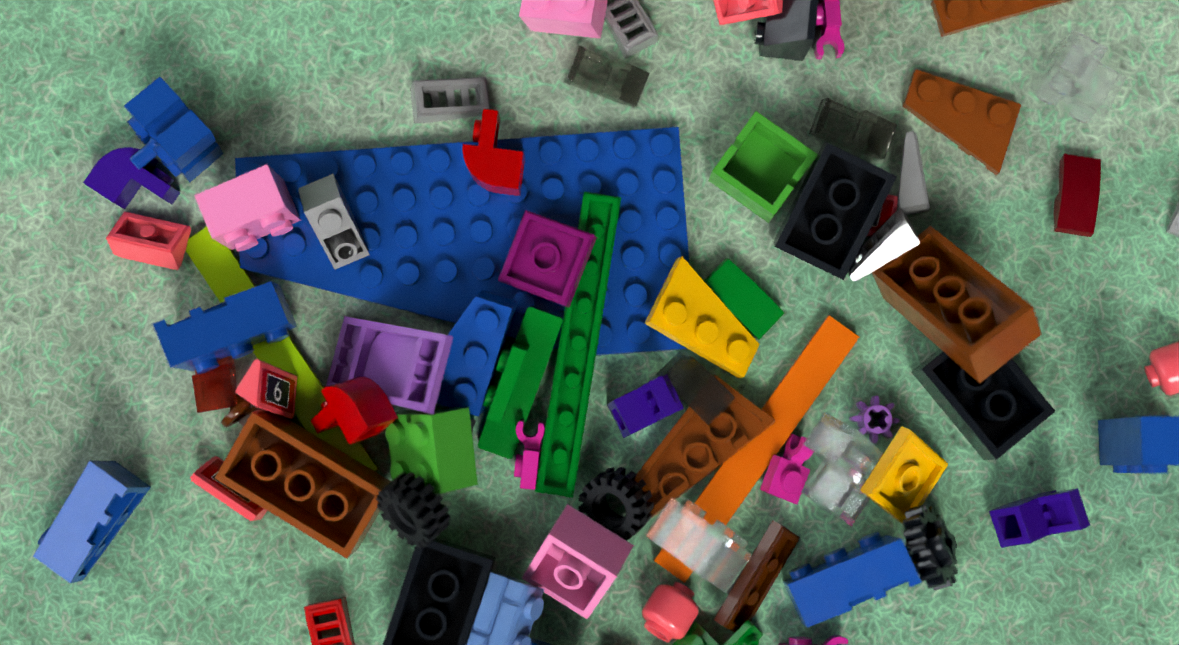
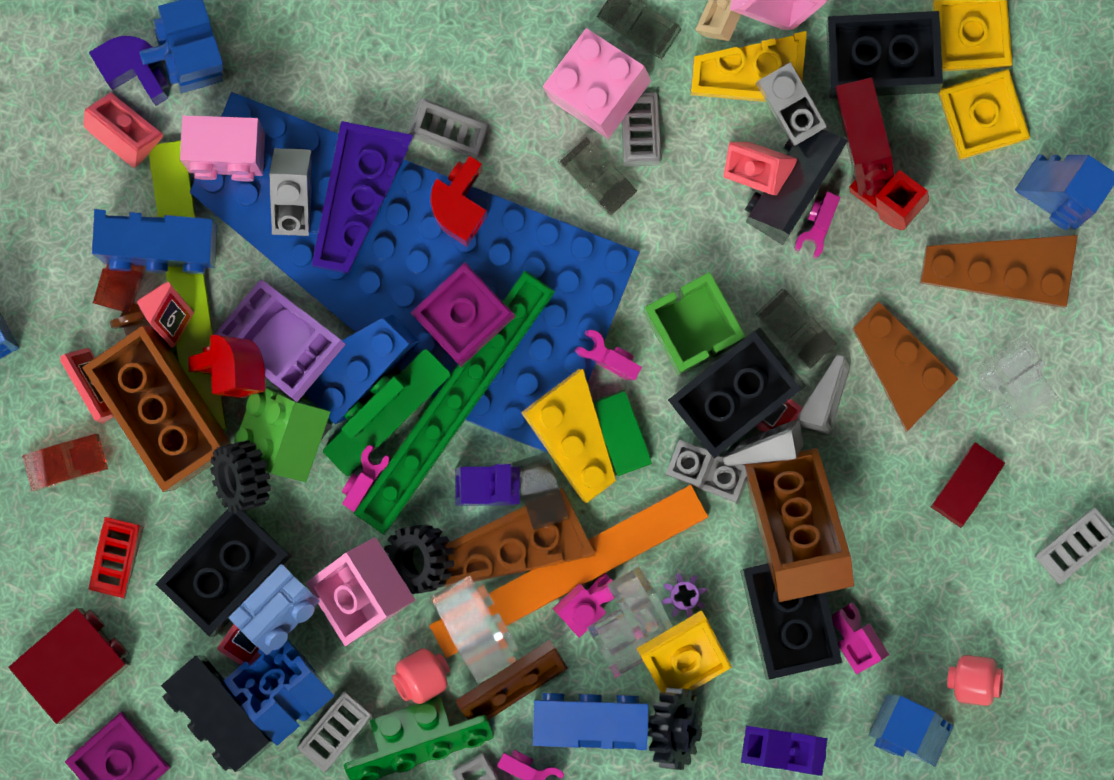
camera: 25 degrees right, 0 degrees up
(242, 572) = (65, 462): none -> clear red slope
(393, 187) = (358, 183): none -> dark purple wing
(707, 235) = (617, 361): none -> dark pink plate
(837, 297) = (701, 470): none -> light grey slope
(1057, 384) = (859, 644): none -> dark pink plate

